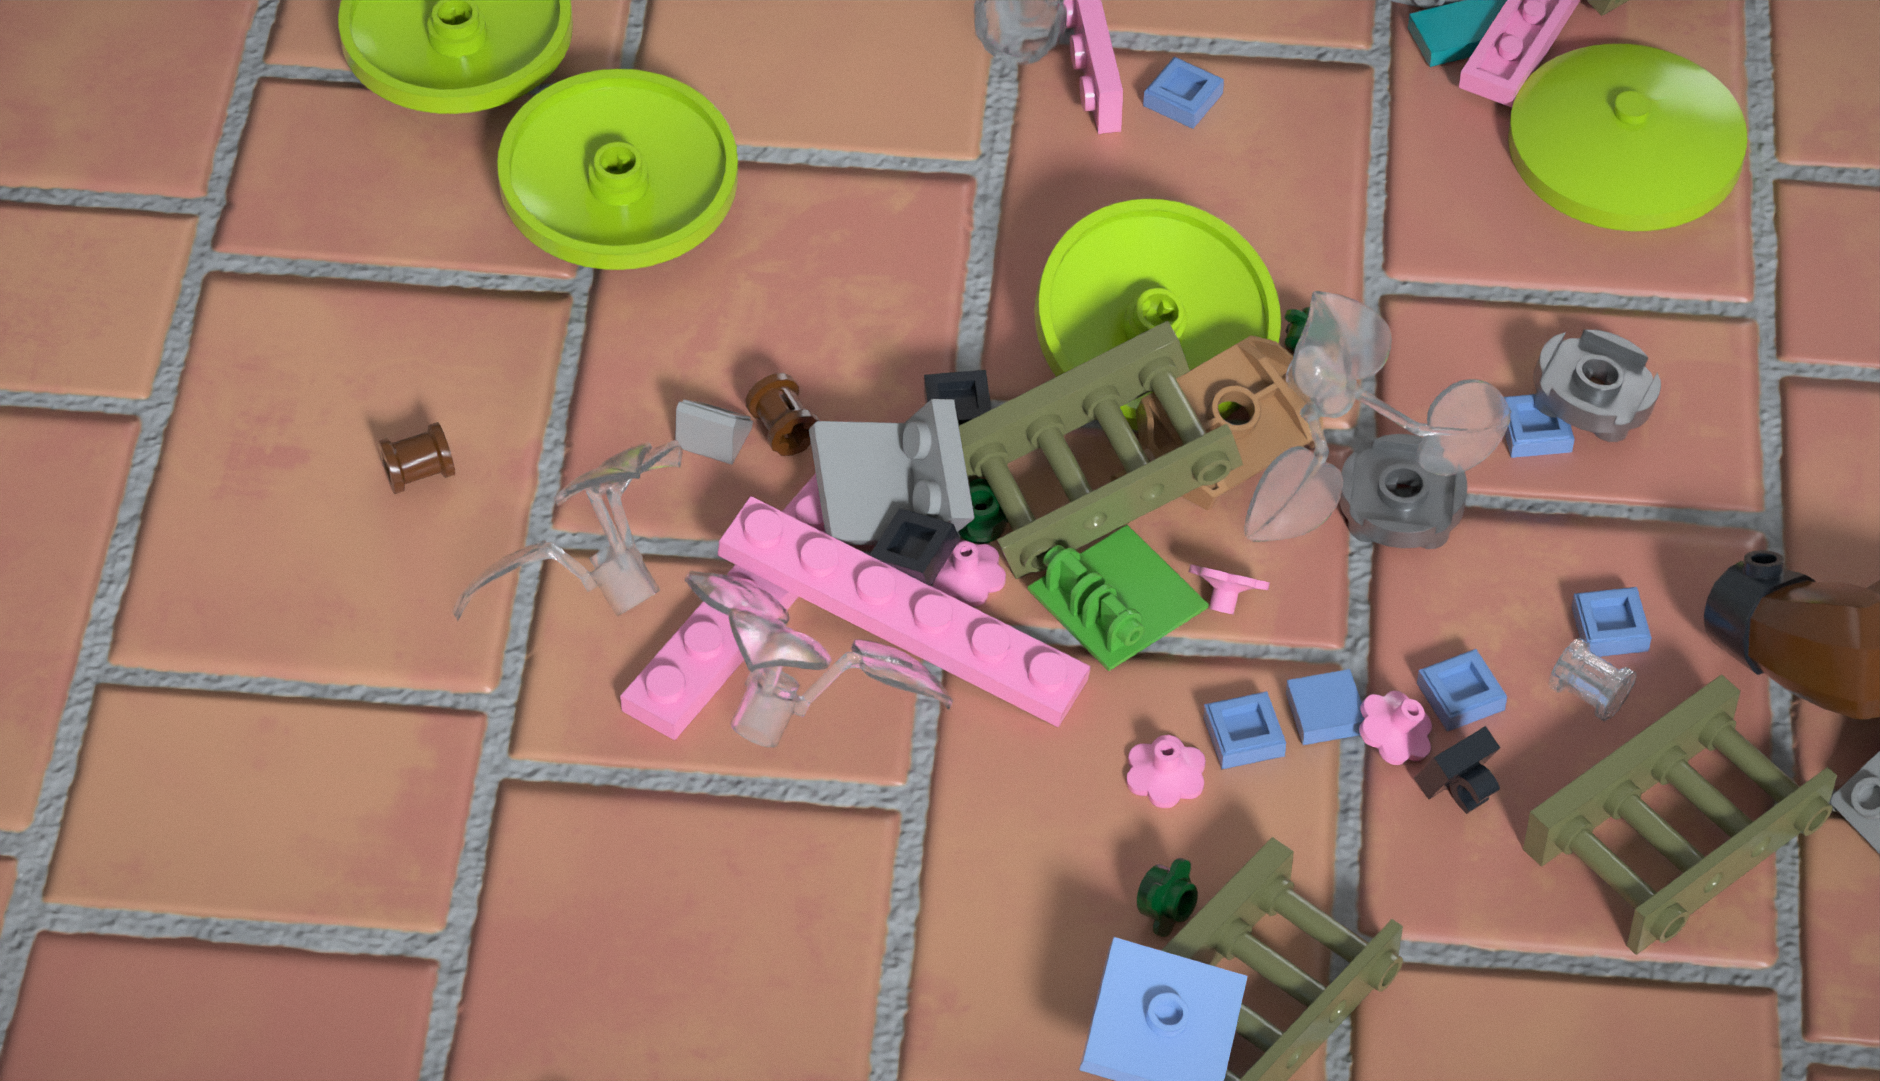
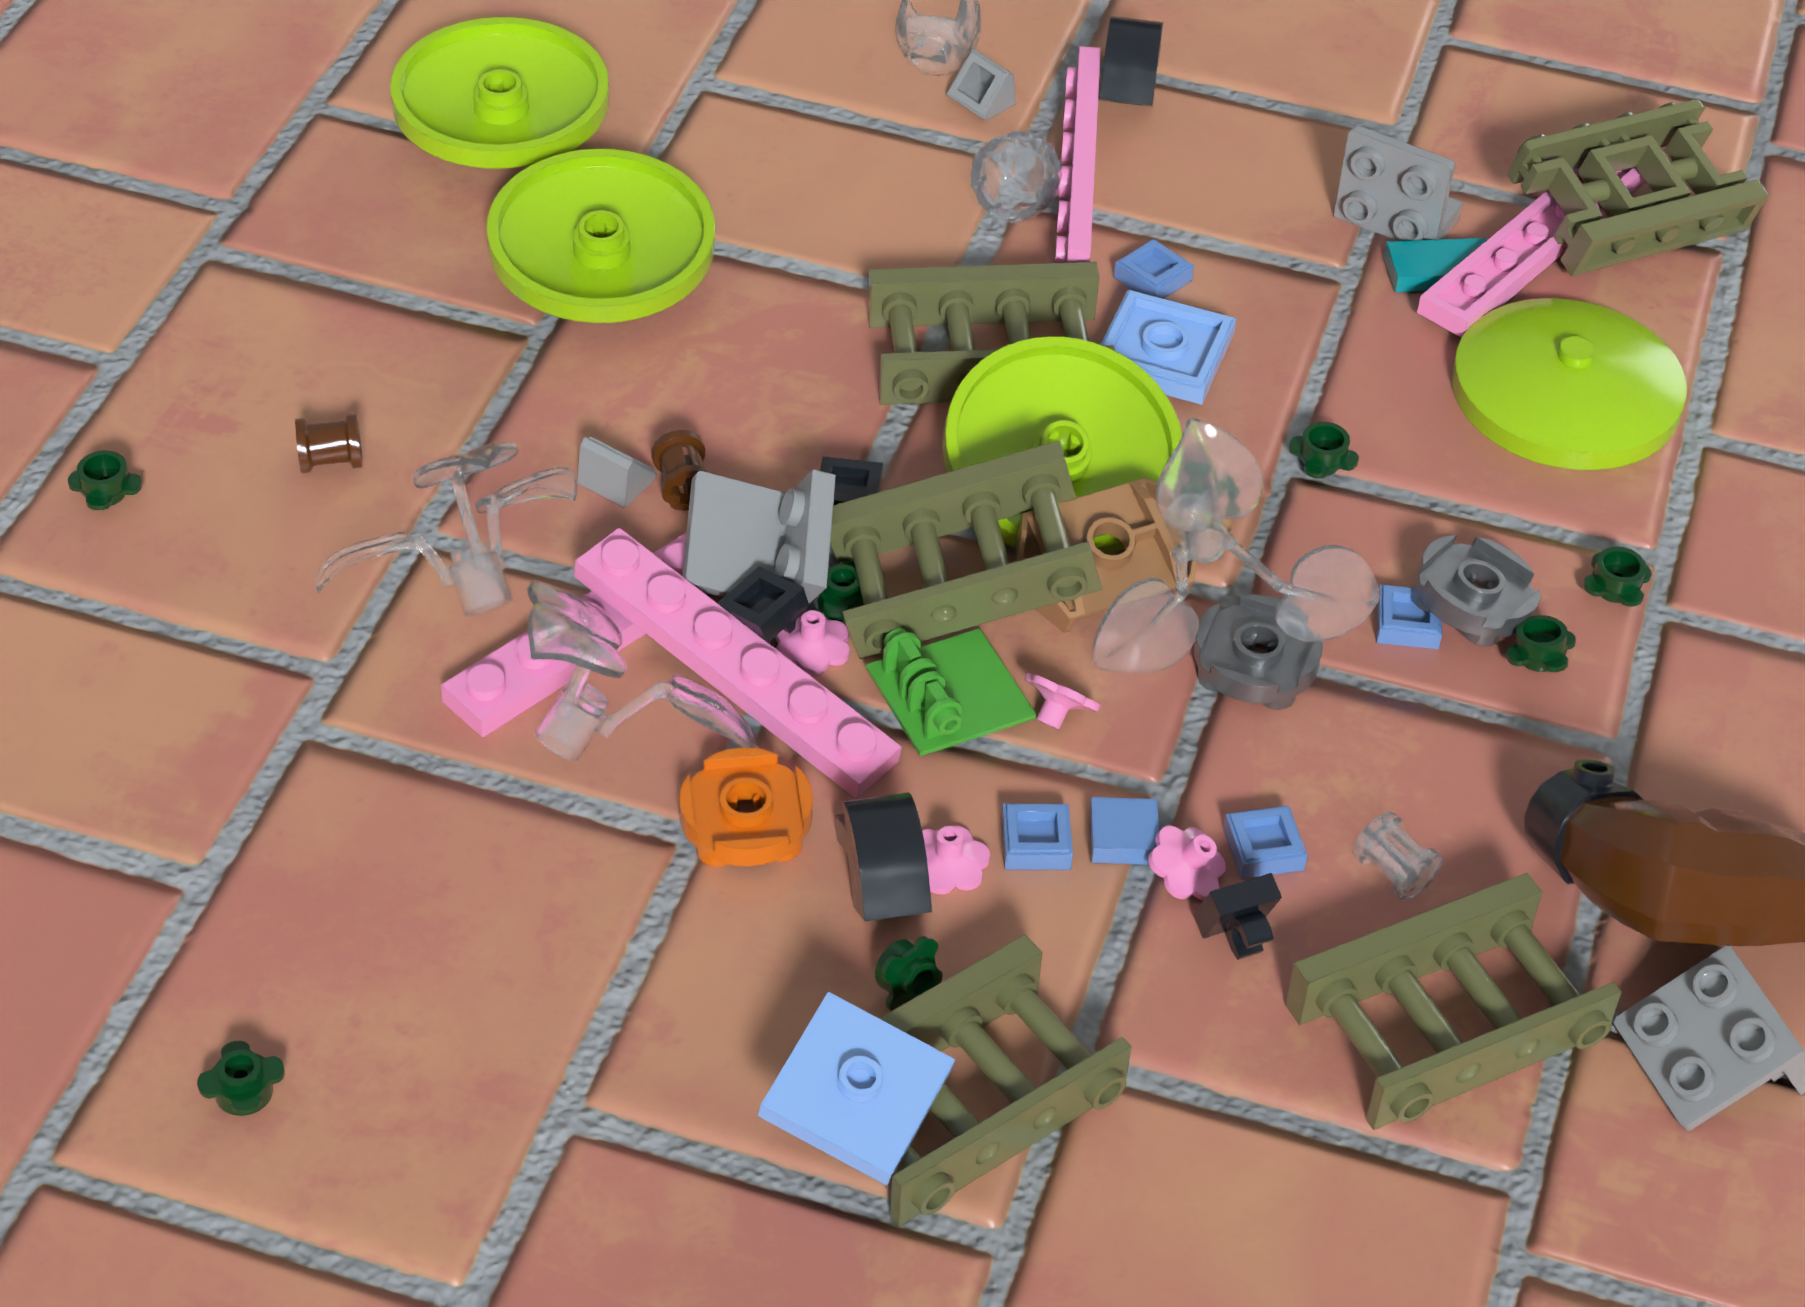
camera: 10 degrees right, 5 degrees down
(204, 532) = (104, 479): none -> dark green plate
(960, 793) = (746, 838): none -> orange plate
(1015, 160) = (967, 297): none -> olive fence
(1113, 784) = (885, 856): none -> black brick
(1224, 173) = (1171, 342): none -> light blue plate
(1408, 261) = (1324, 449): none -> dark green plate
(1612, 621) = (1434, 808): medium blue tile -> none
(1672, 430) = (1541, 644): none -> dark green plate
(1726, 341) = (1618, 576): none -> dark green plate

